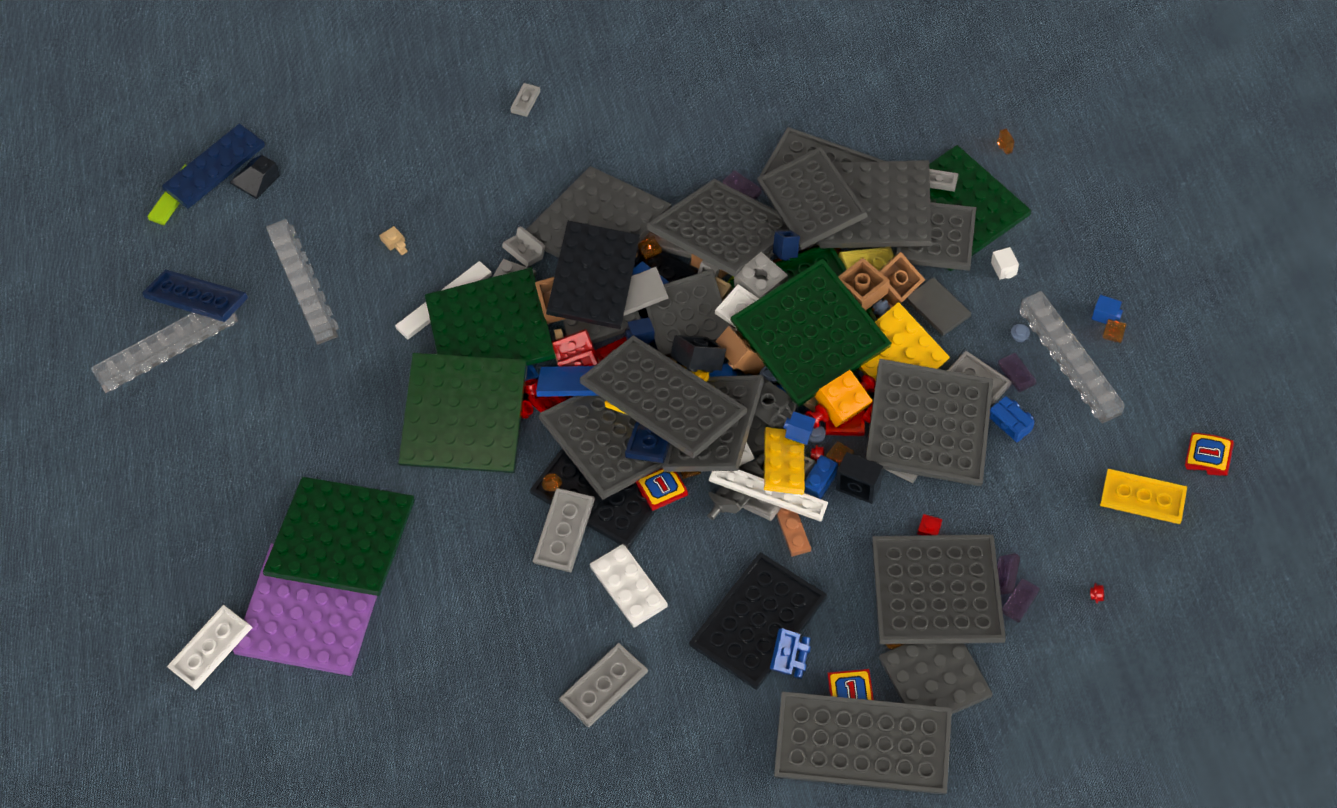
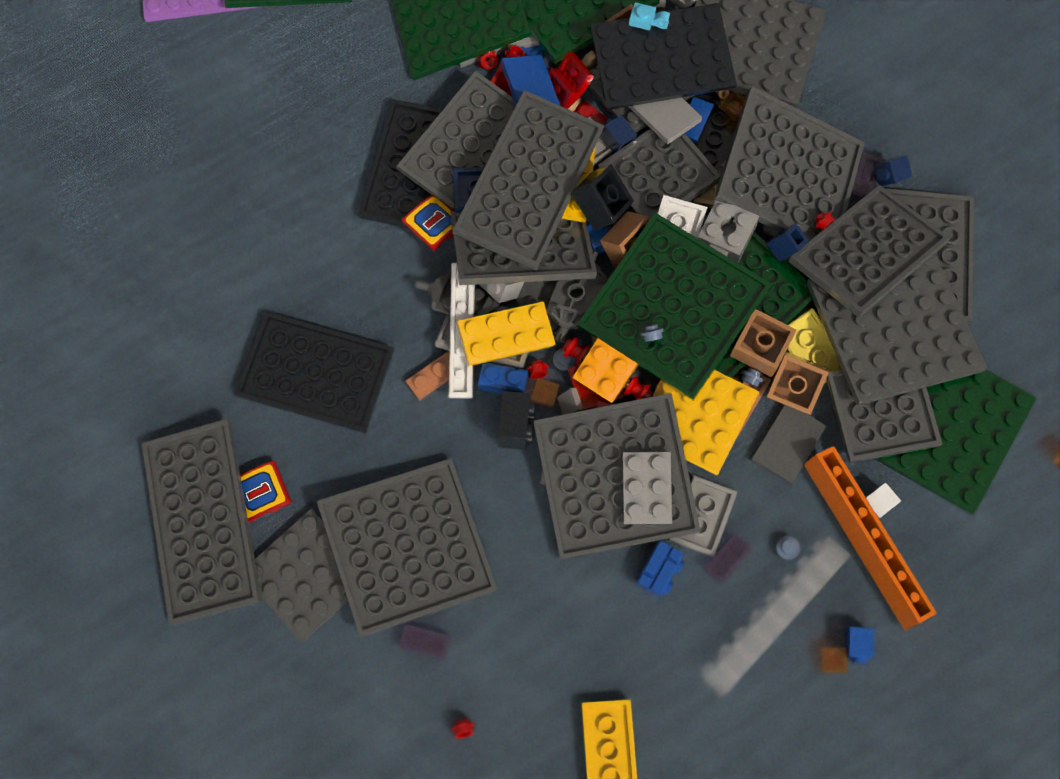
camera: 70 degrees right, 15 degrees up
(551, 482) = (402, 114): clear orange plate -> none
(562, 269) = (646, 16): none -> medium azure plate
(563, 530) = (356, 147): light grey tile -> none
(603, 685) = (200, 248): light grey tile -> none
(628, 585) = (317, 233): white plate -> none
(747, 167) = (892, 170): none -> dark blue brick
(776, 218) = (824, 220): none -> red plate
(785, 653) = (280, 408): plate -> none
(799, 427) = (548, 335): blue brick -> none
(830, 349) = (652, 332): none -> sand blue plate
(855, 439) = (570, 401): none -> light grey tile
(929, 525) = (488, 517): red plate -> none
(943, 180) = (968, 394): light grey plate -> none
(948, 400) = (647, 487): none -> light grey plate
(1007, 572) = (453, 618): clear purple plate -> none
(1030, 276) = (870, 538): none -> orange brick

